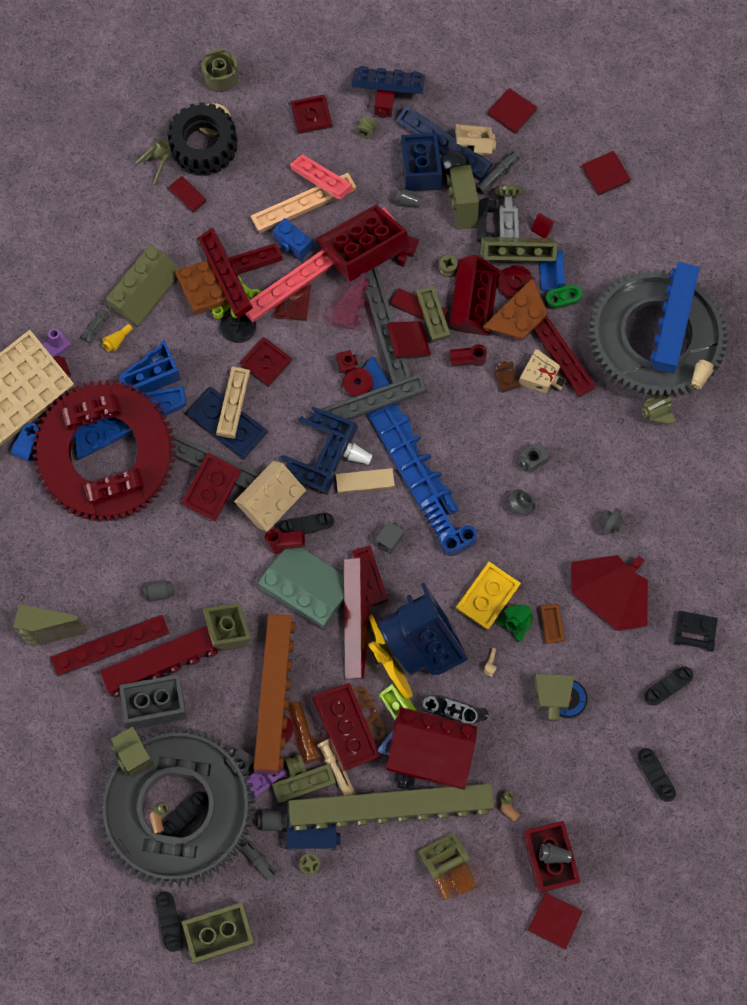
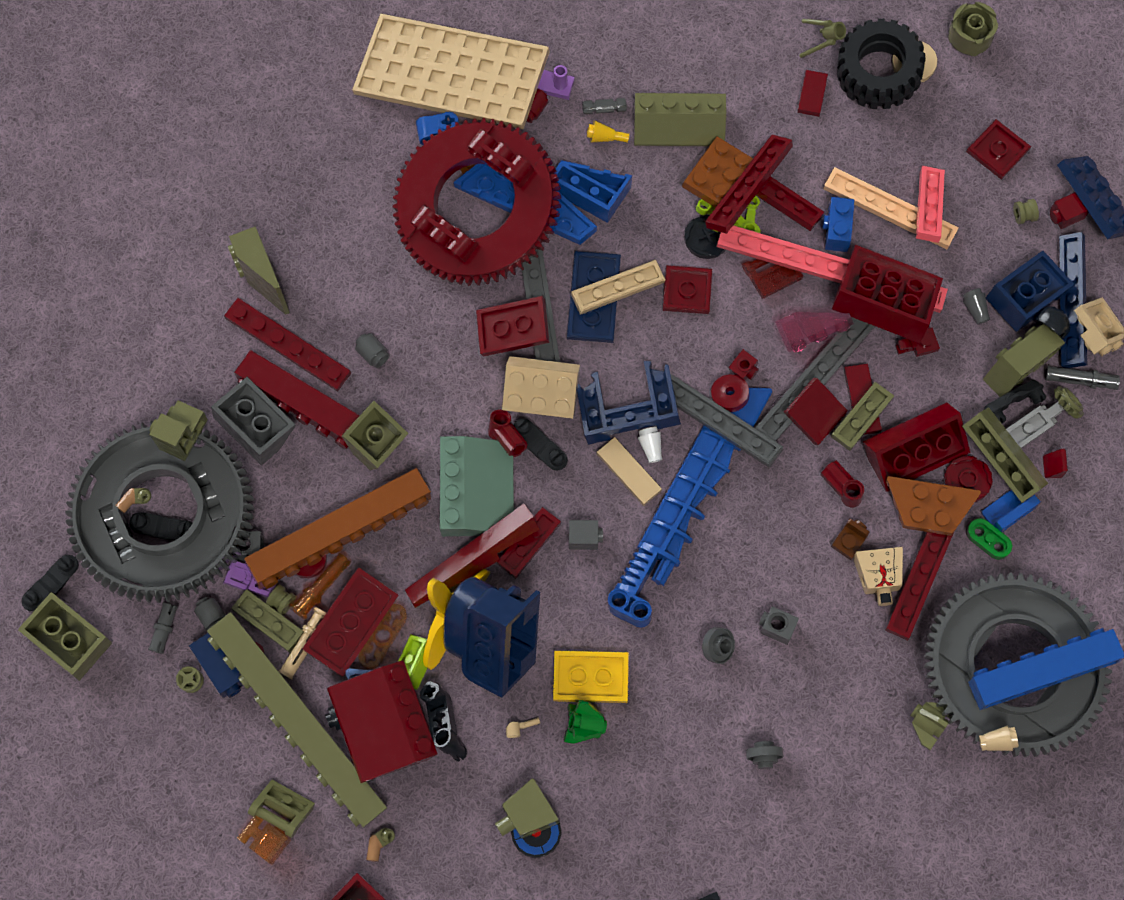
camera: 60 degrees right, 0 degrees up
(450, 269) = (927, 400): olive wheel -> none
(552, 623) = (607, 763): dark orange tile -> none
(612, 590) = (688, 803): dark red panel -> none

